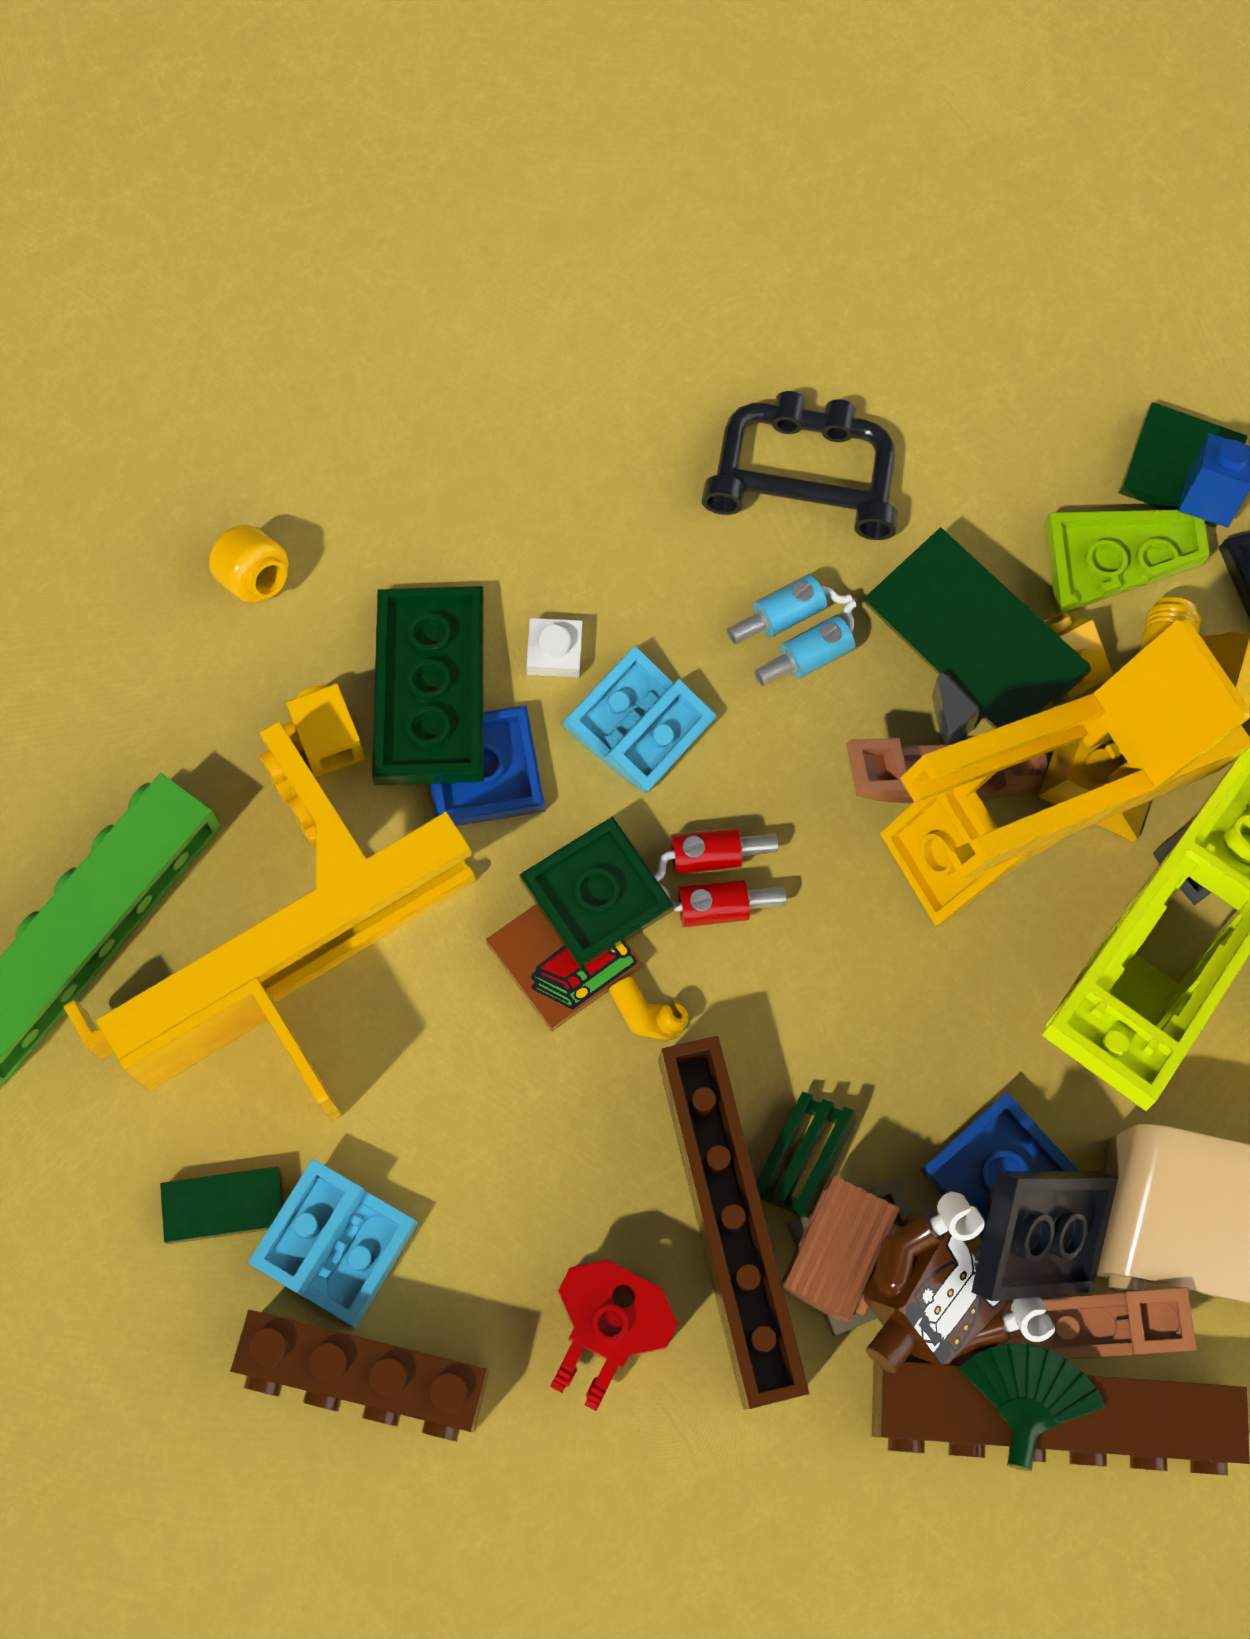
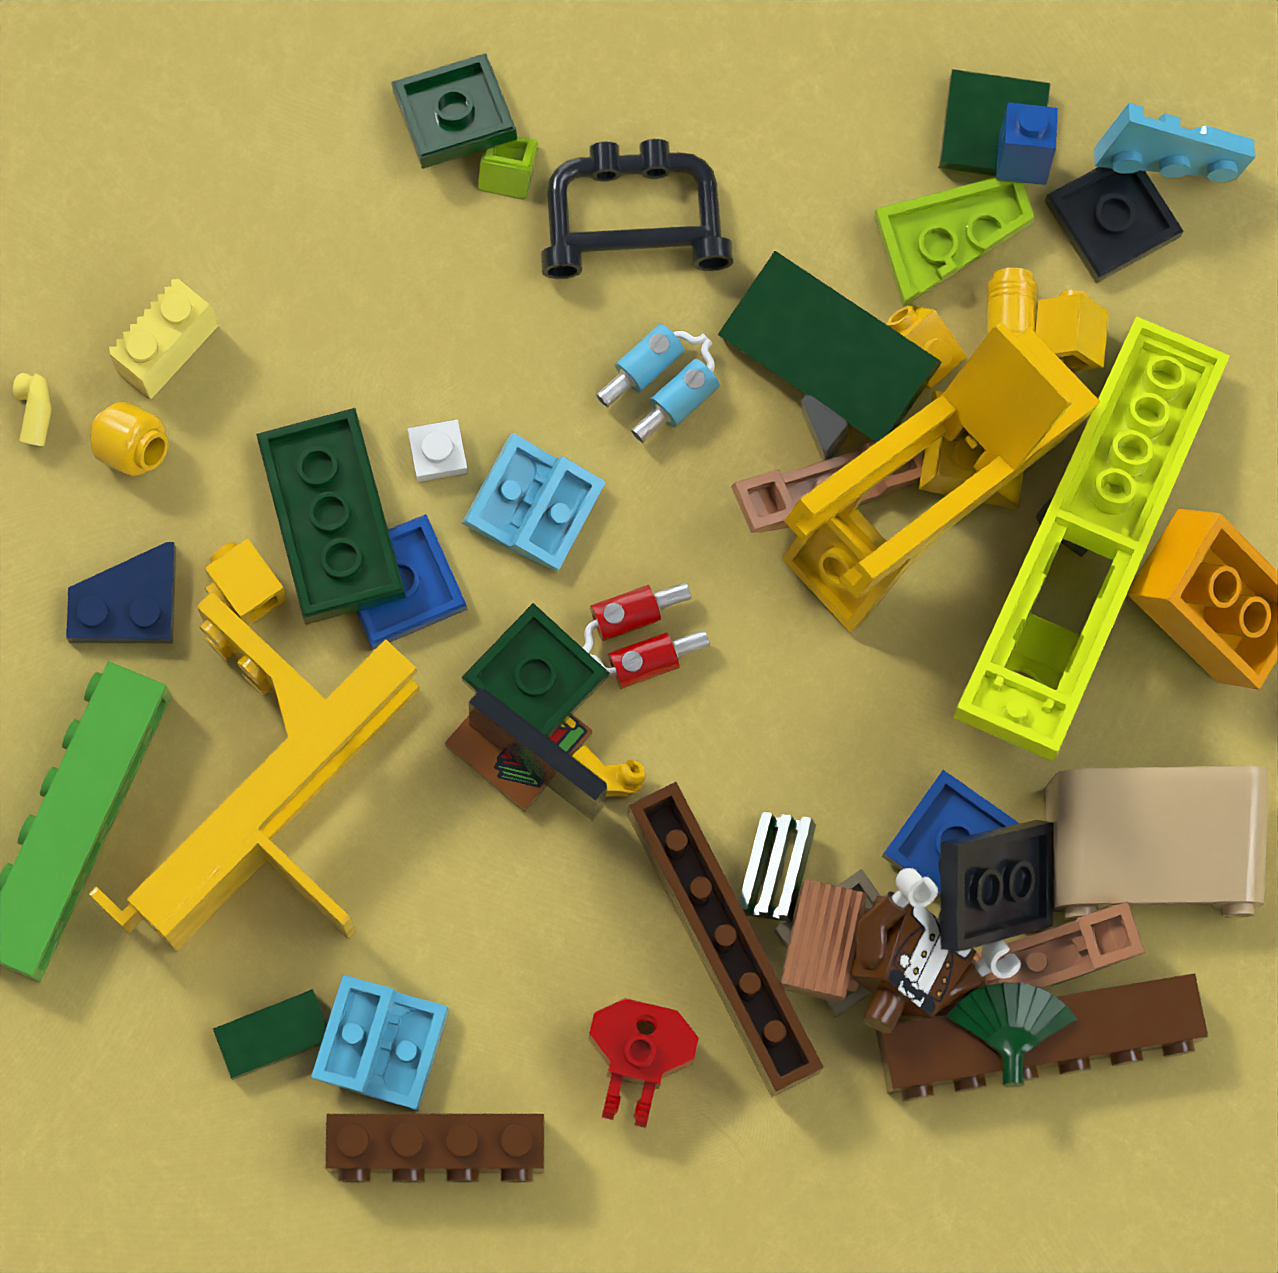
camera: 15 degrees left, 5 degrees up
(169, 518) = (38, 407): none -> light yellow arm
(202, 722) = (126, 601): none -> dark blue wing
(310, 476) = (163, 338): none -> light yellow brick
(577, 970) = (537, 753): none -> black tile
(652, 334) = (454, 110): none -> tile
(692, 397) = (508, 168): none -> lime slope

